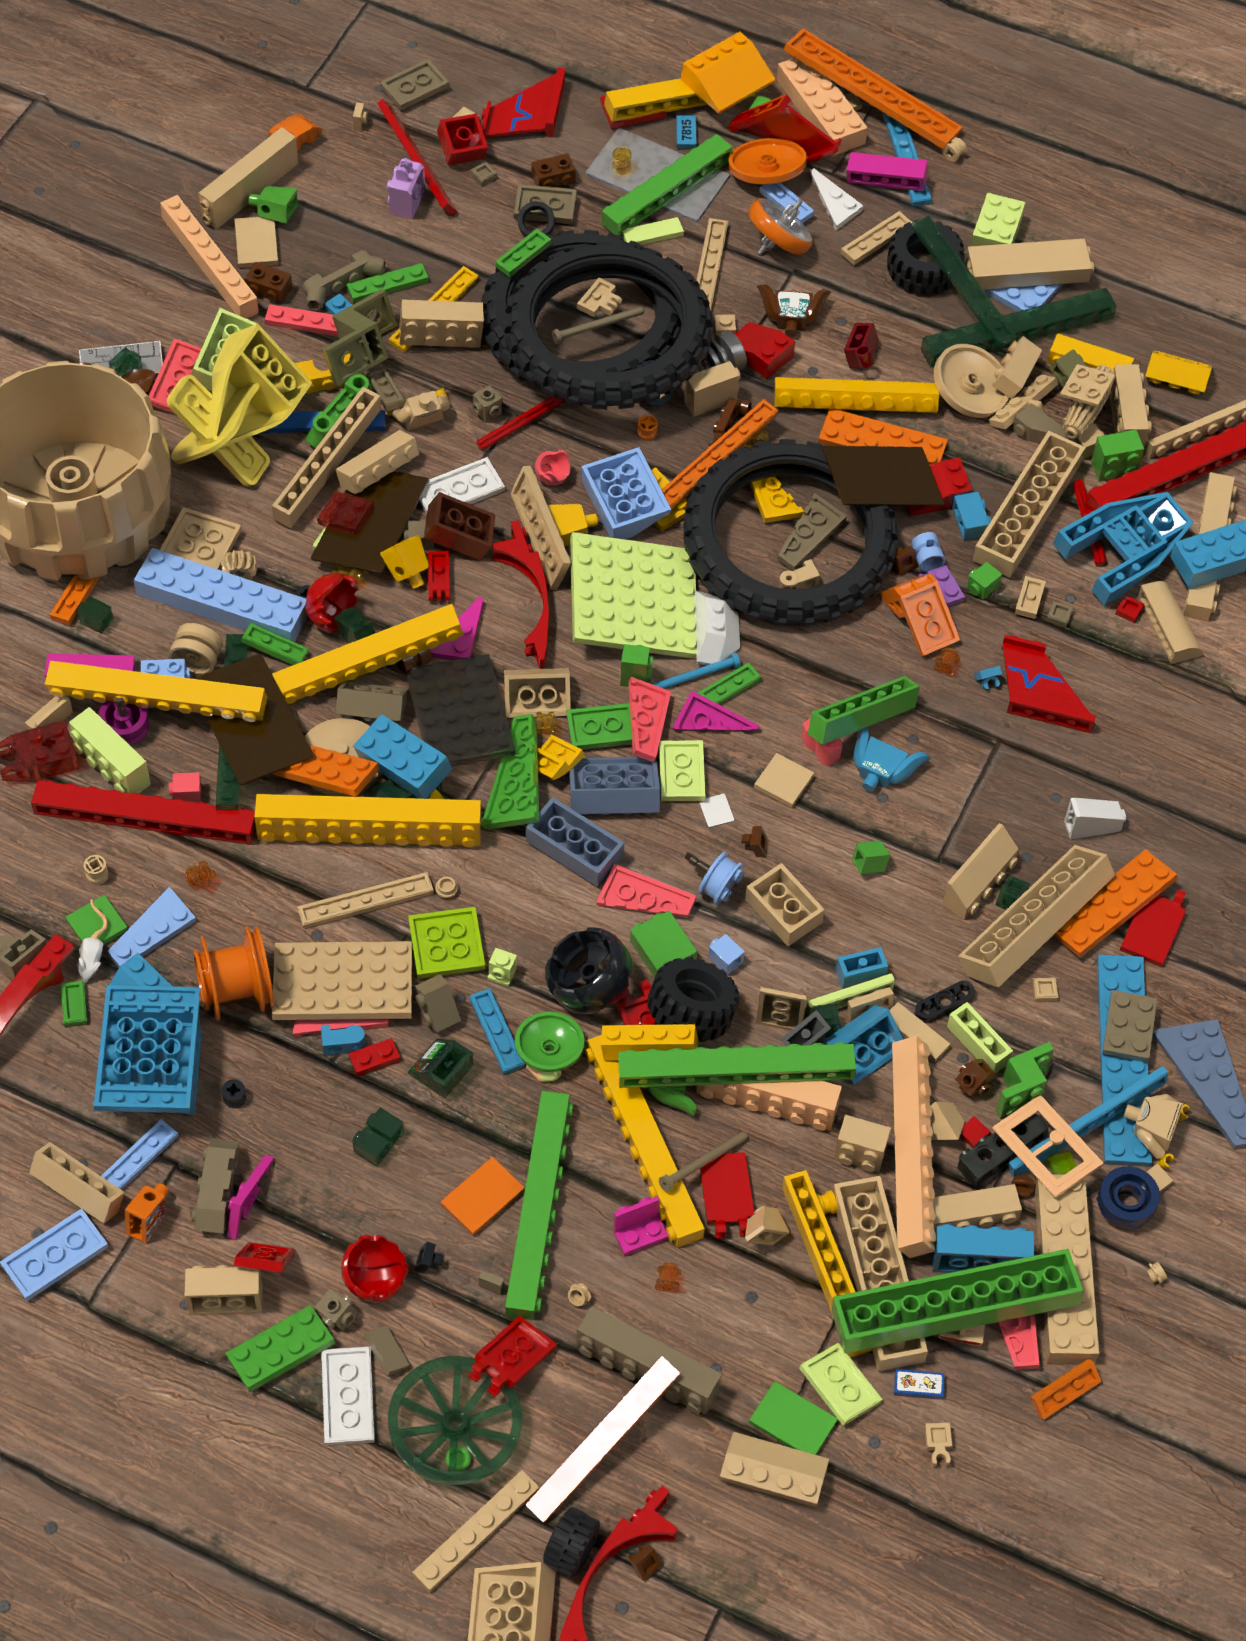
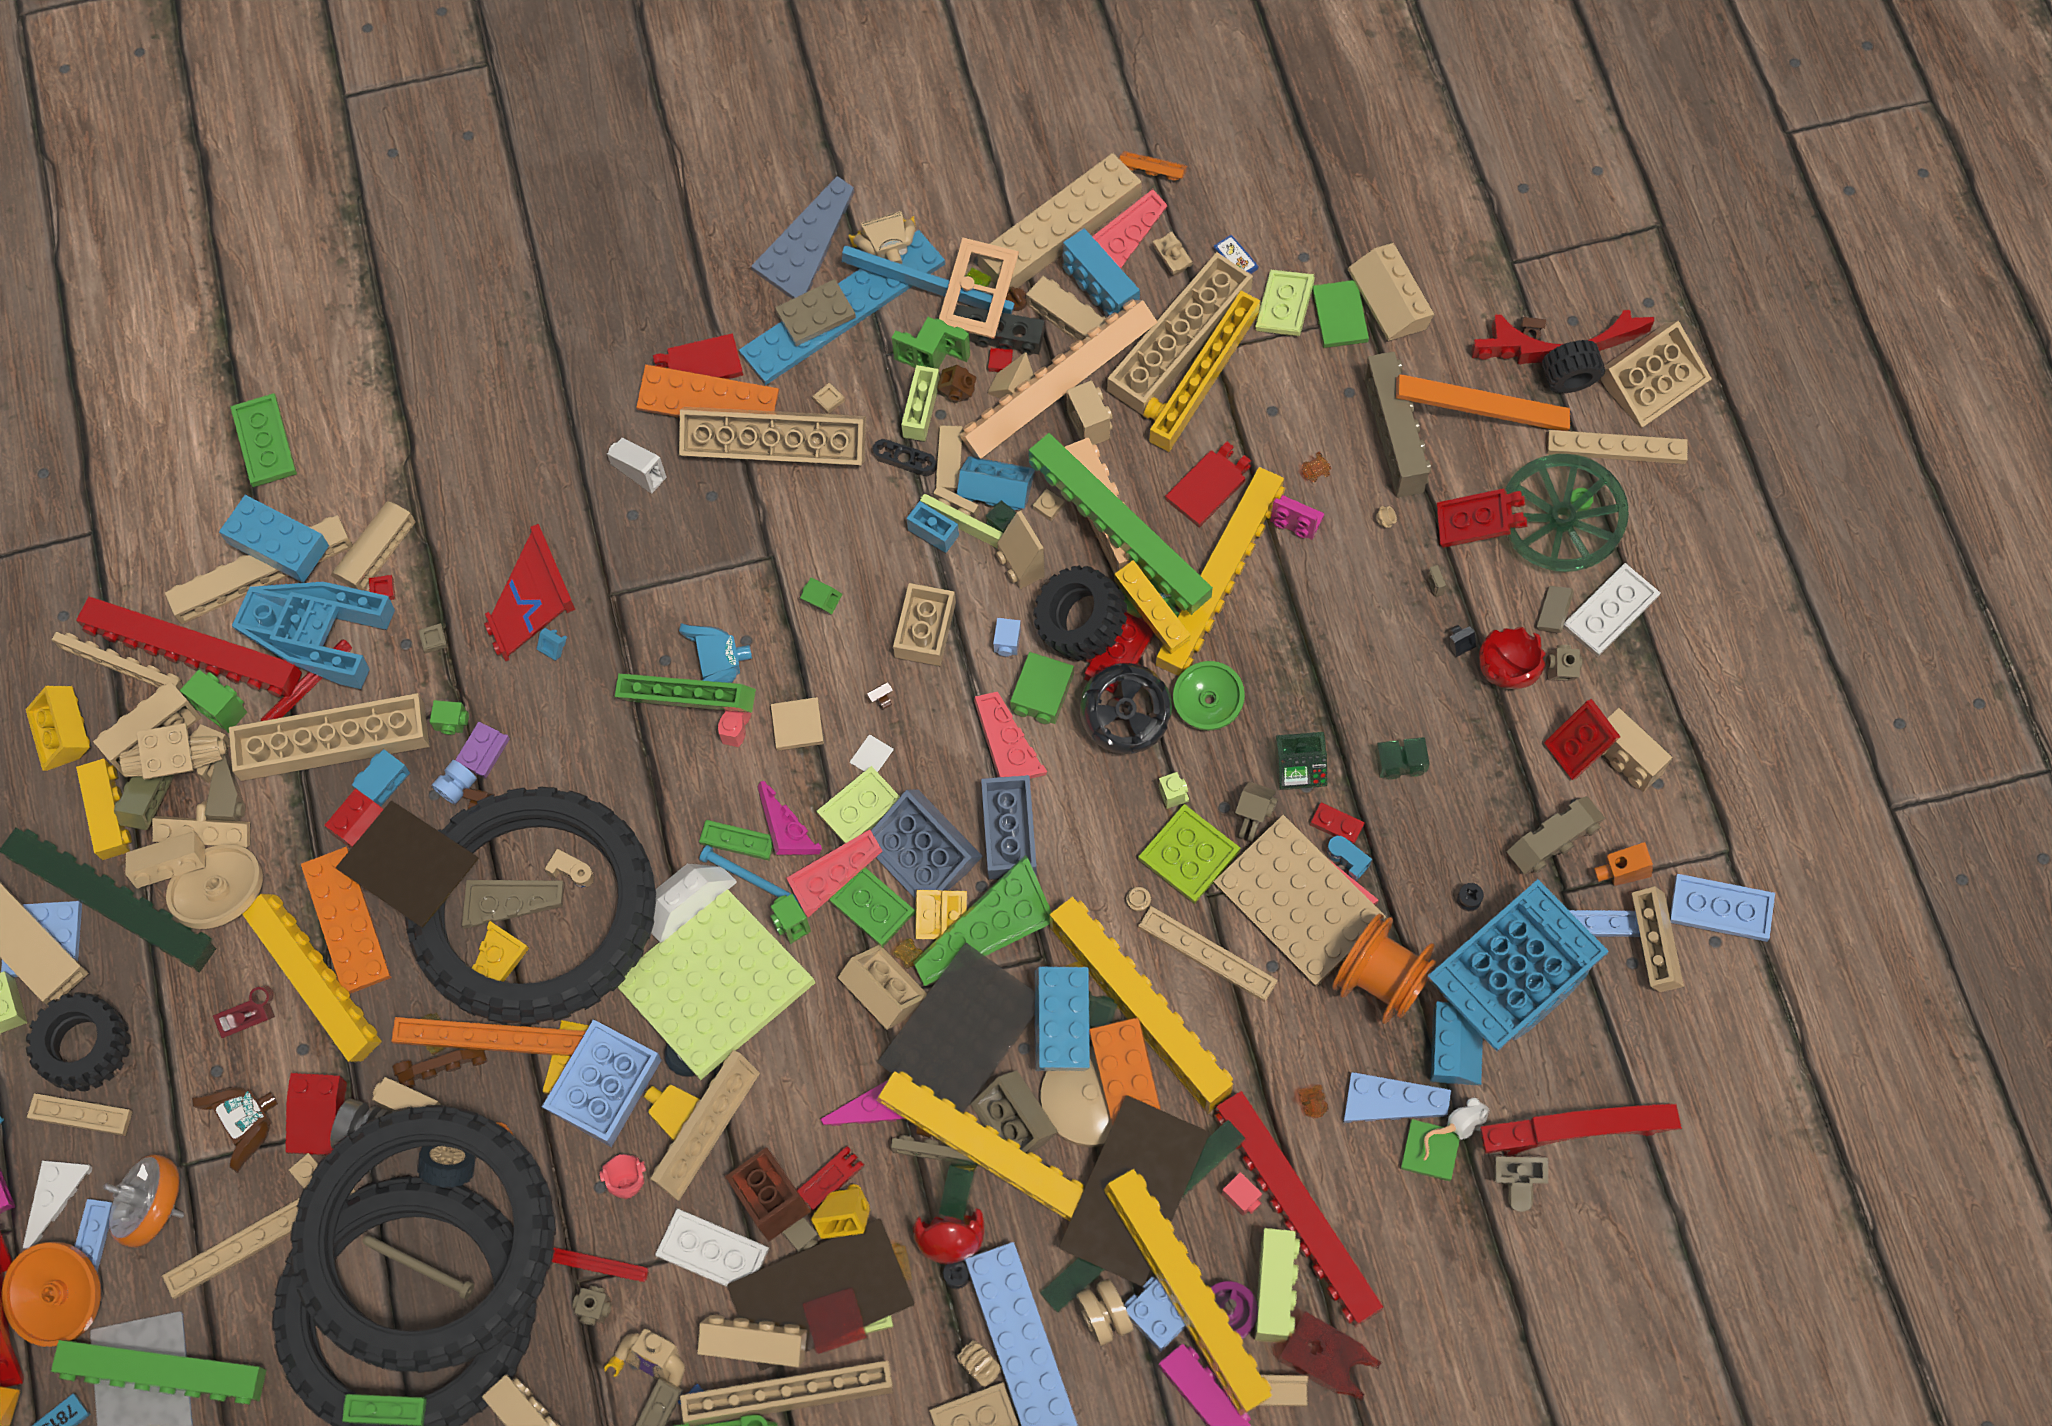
camera: 125 degrees left, 10 degrees up
(74, 1003) = (1514, 1098): bright green tile -> none
(96, 870) = (1387, 1199): tan wheel -> none
(246, 1196) = (1537, 809): dark pink wing -> none
(274, 645) = (1032, 1255): bright green tile -> none
(280, 1348) = (1627, 682): bright green plate -> none
(482, 1196) = (1374, 647): orange tile -> none
(496, 1031) = (1229, 754): dark azure tile -> none
(521, 557) = (747, 1126): red slope -> none
(537, 1206) = (1344, 600): bright green brick -> none
(599, 298) = (385, 1288): tan hinge -> none
(654, 231) = (233, 1339): yellowish green tile -> none
(668, 1182) = (1250, 512): dark tan bar -> none
(718, 877) = (945, 687): light blue wheel -> none
(766, 1226) = (1218, 429): tan slope -> none
(808, 1031) = (1039, 516): dark grey slope -> none
(925, 611) = (523, 741): orange bracket -> none
(938, 1439) = (1267, 215): tan plate -> none
(947, 661) = (563, 684): clear orange brick -> none
(956, 1300) = (1169, 248): bright green brick -> none
(964, 281) = (94, 971): clear green tile -> none
(981, 873) = (765, 508): tan slope -> none
(1011, 891) = (759, 476): clear green bracket -> none
(1030, 597) = (435, 670): tan plate -> none
(1135, 1183) = (966, 204): dark blue piece -> none
(1156, 1273) = (1007, 170): tan plate -> none
(1160, 1176) = (929, 220): tan tile -> none

